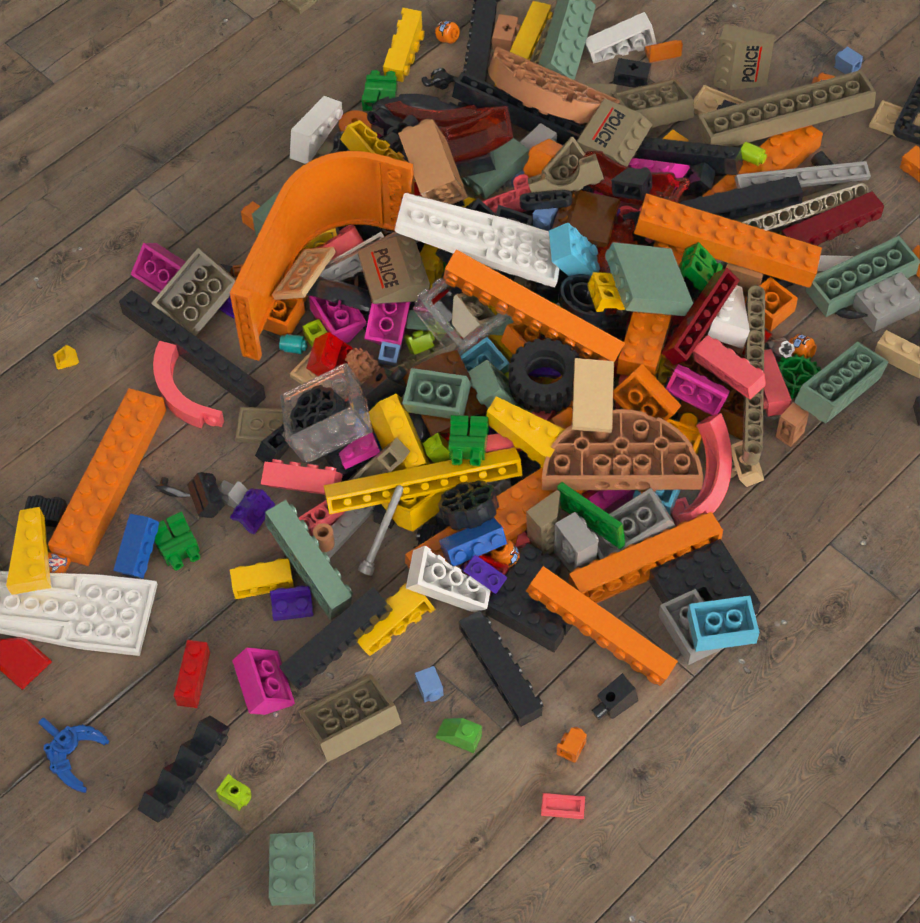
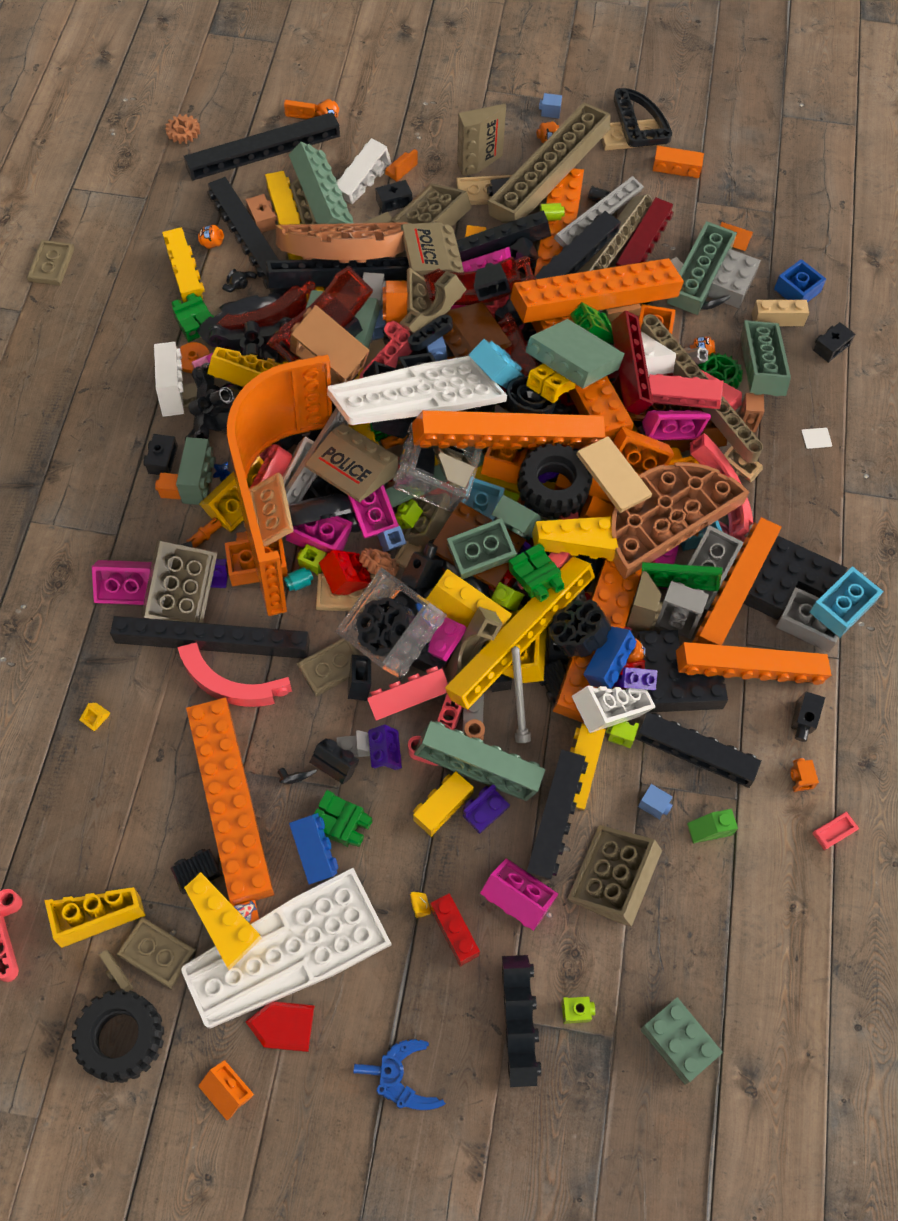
camera: 40 degrees left, 5 degrees up
(181, 637) = (420, 904): none -> yellow slope
(265, 186) = (160, 454): none -> black brick
(448, 616) = (622, 733): none -> lime brick
(845, 484) = (816, 438): none -> white sticker

